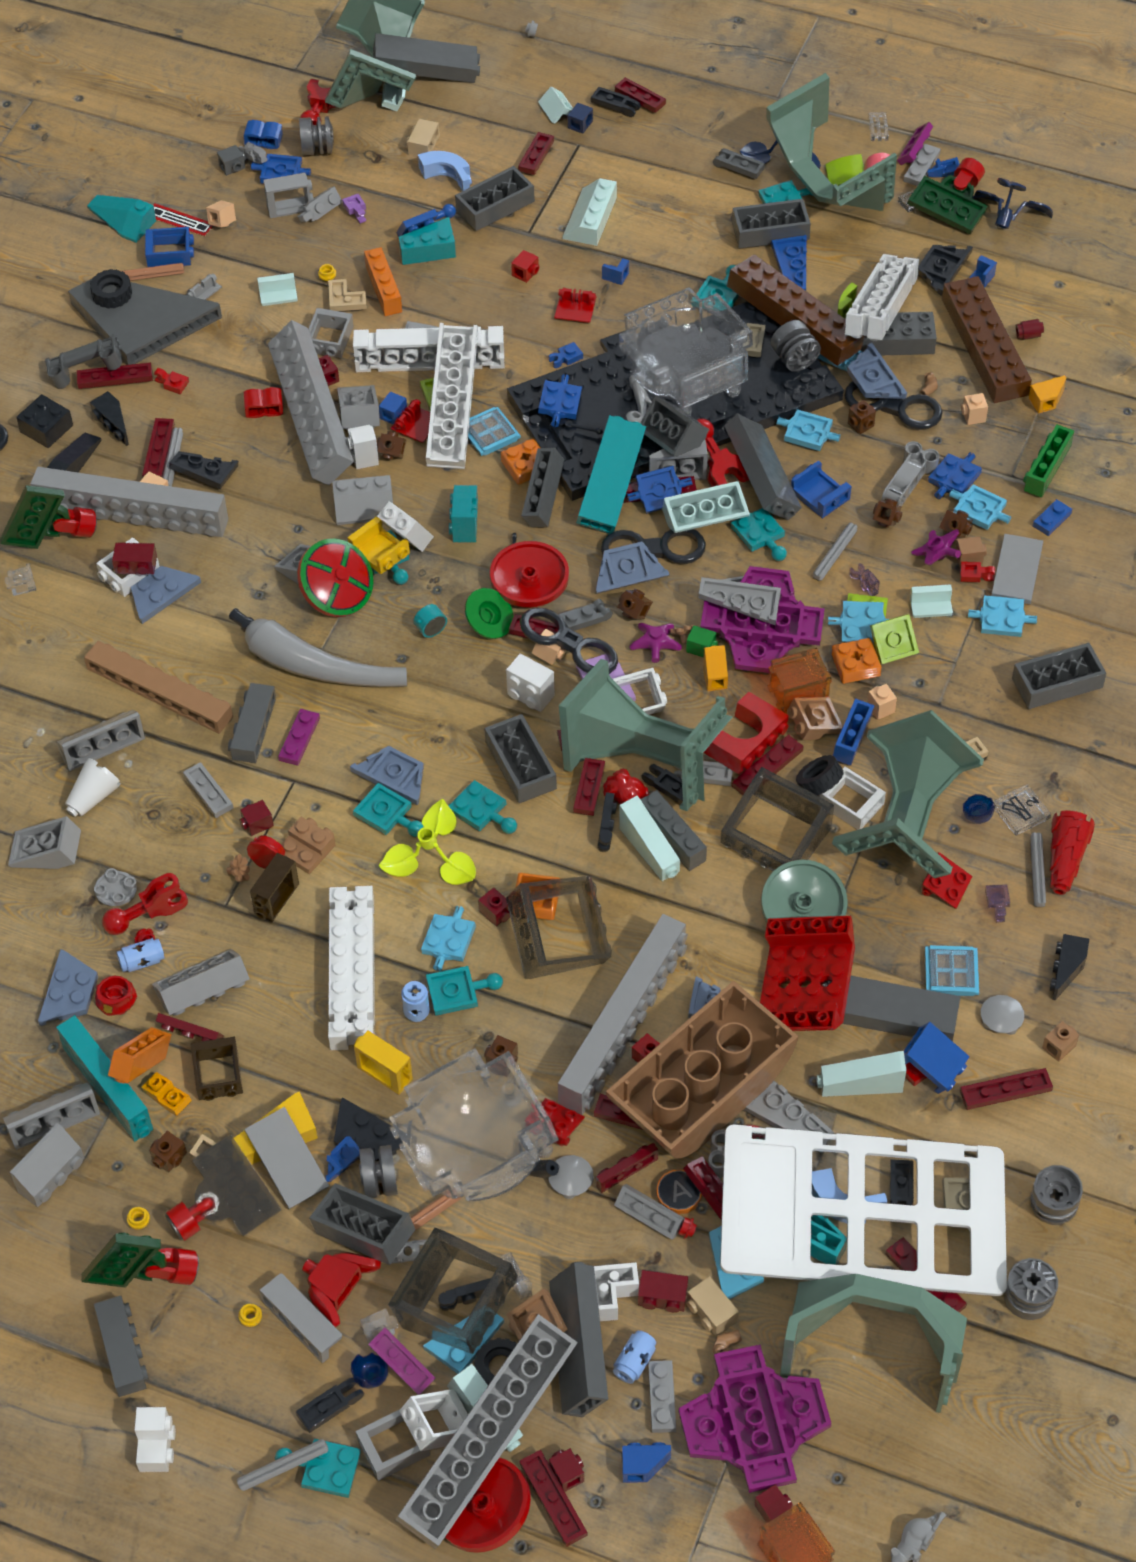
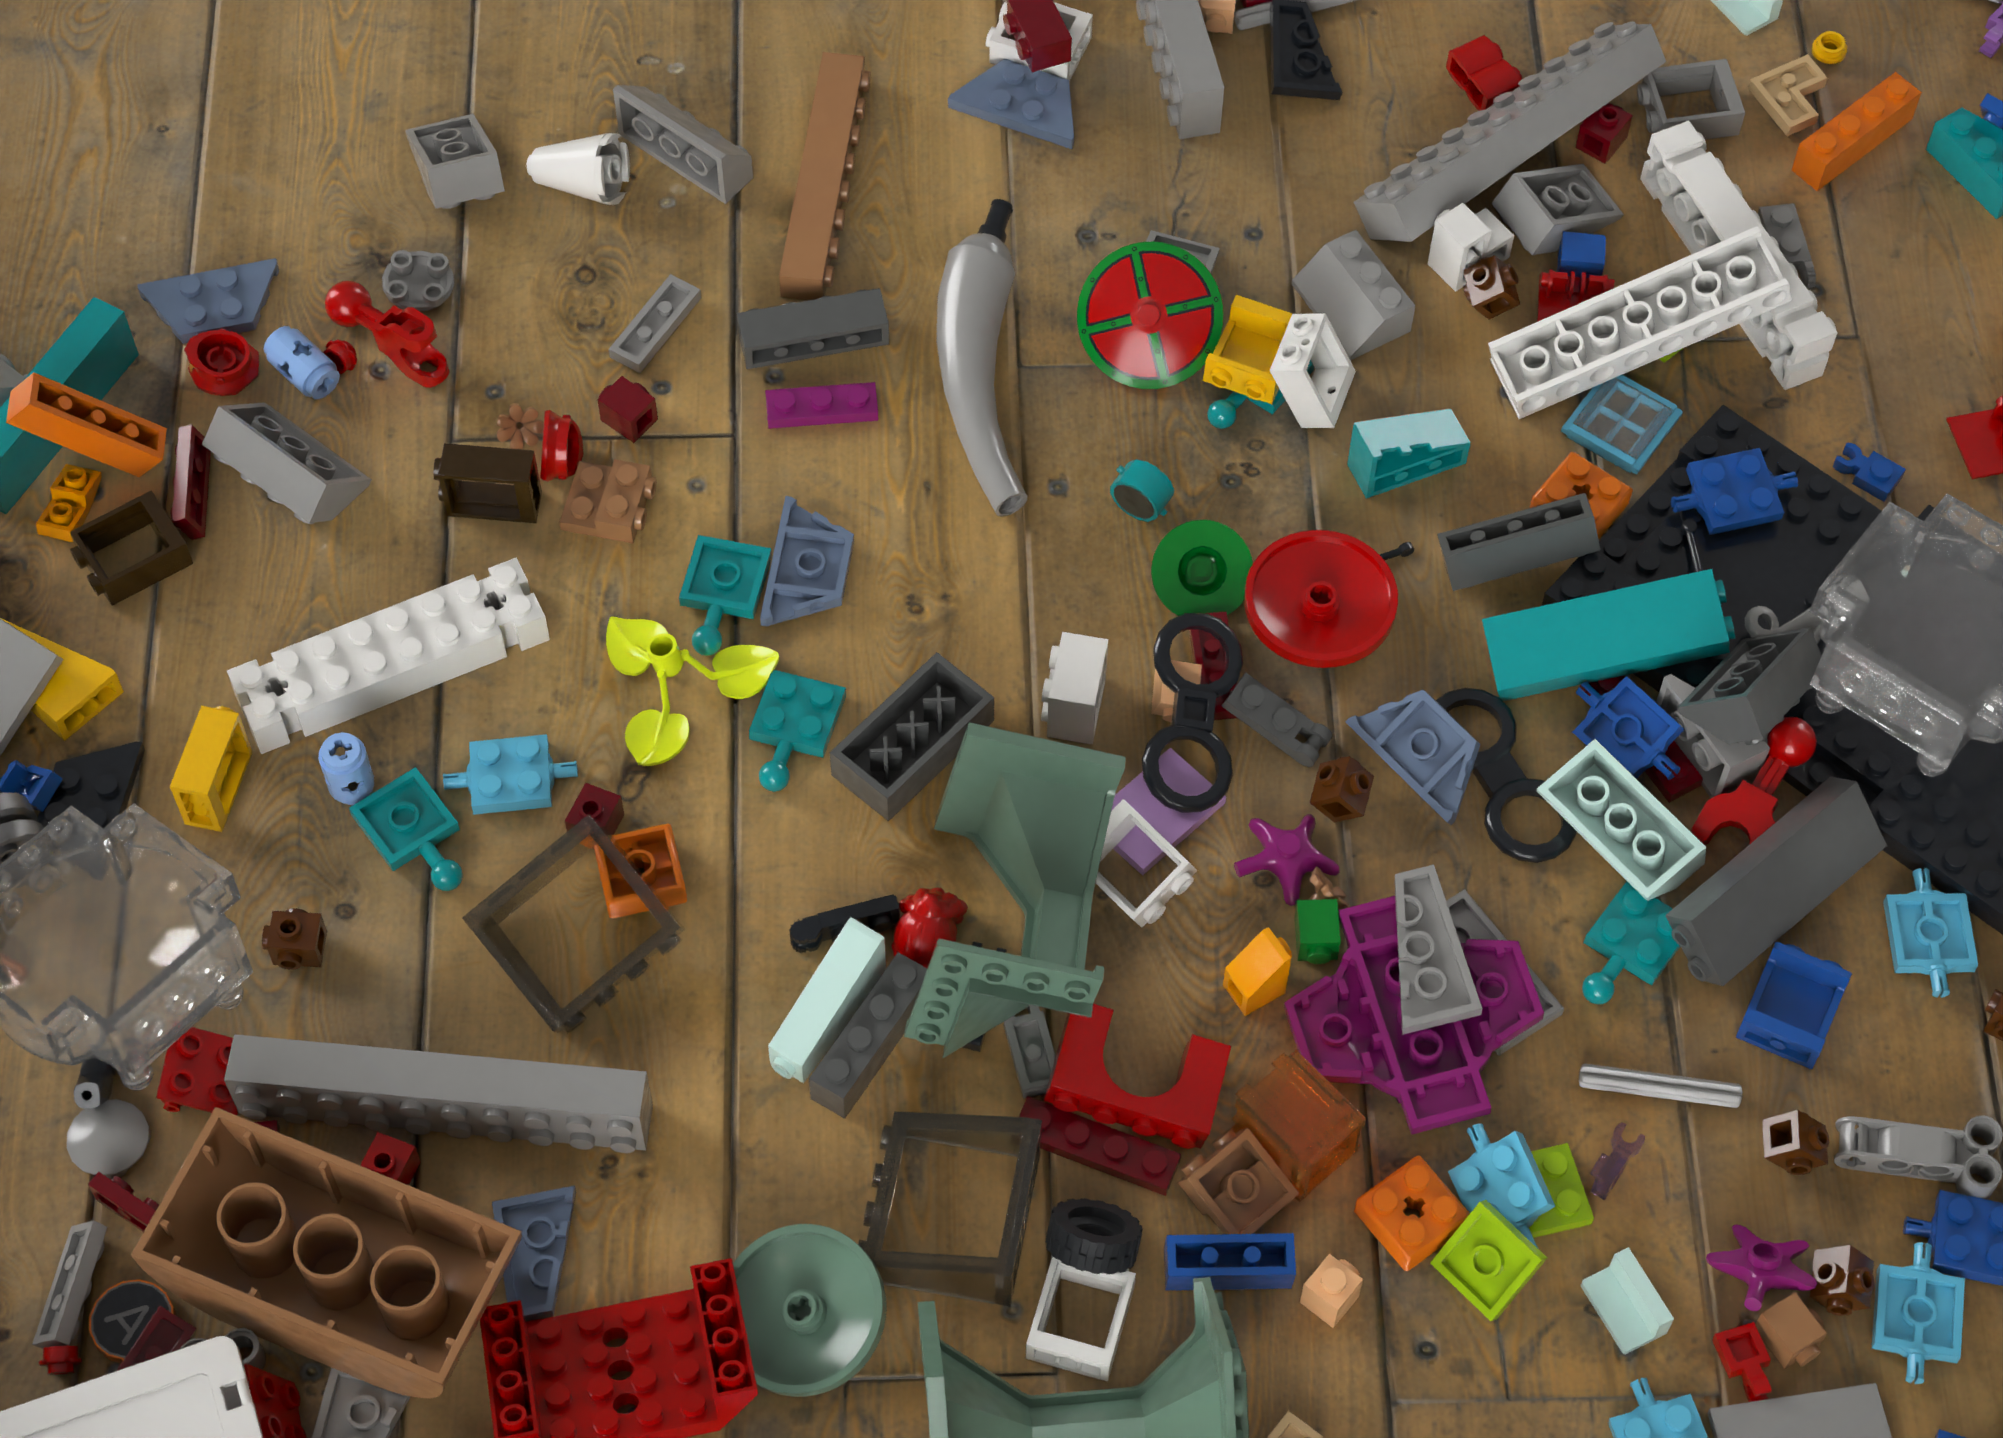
camera: 65 degrees right, 5 degrees up
(589, 786) = (911, 868): dark red plate -> none

